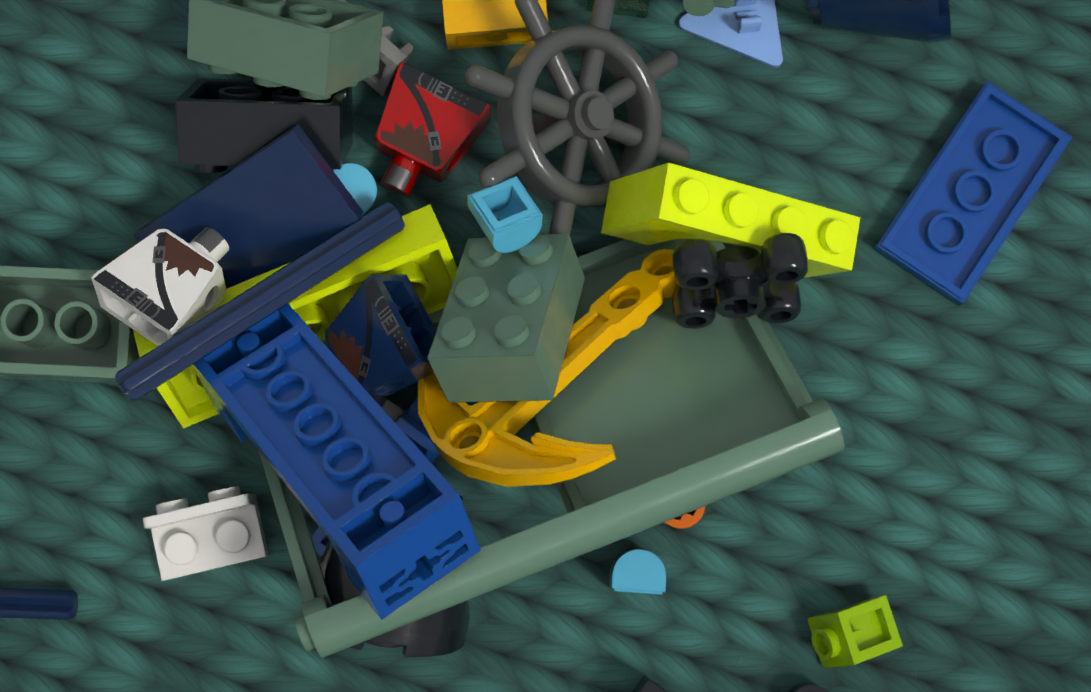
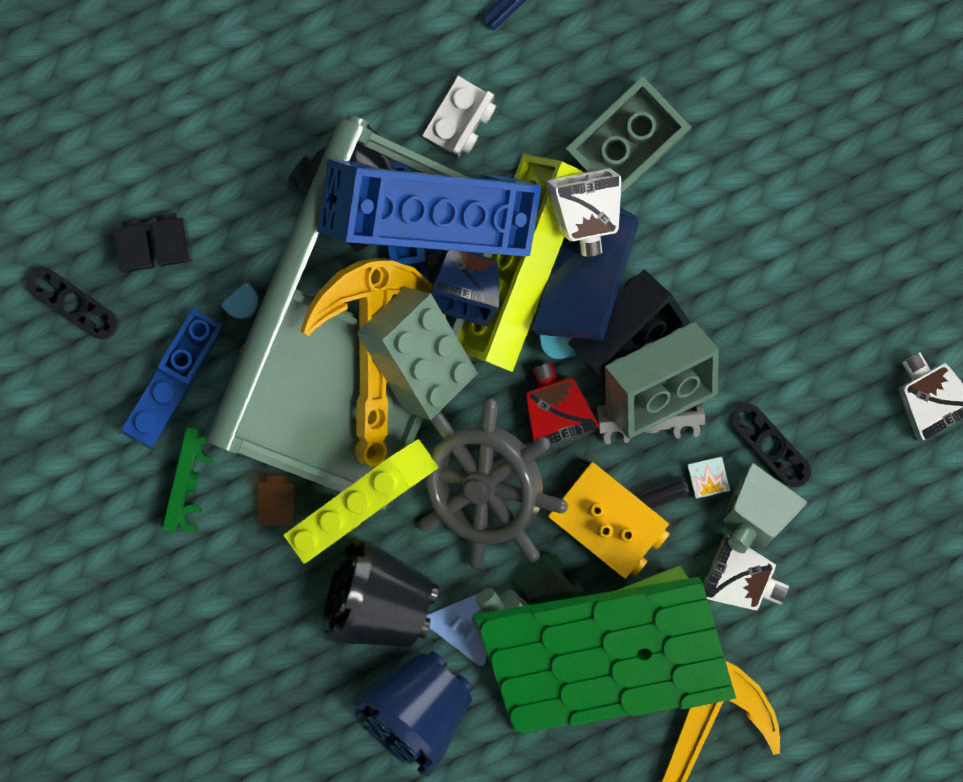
camera: 140 degrees right, 5 degrees up
(258, 302) = (534, 245): dark blue axle -> none
(506, 215) = (465, 396): medium azure brick -> none
(738, 280) = (329, 473): black gear -> none
(795, 568) = (172, 379): none -> blue slope
(813, 331) = (276, 501): none -> clear orange bracket
(814, 116) = (377, 599): none -> black cone
(854, 633) = (114, 379): lime bracket -> none
(887, 446) = (185, 481): none -> green plate
(972, 193) = (266, 651): blue tile -> none

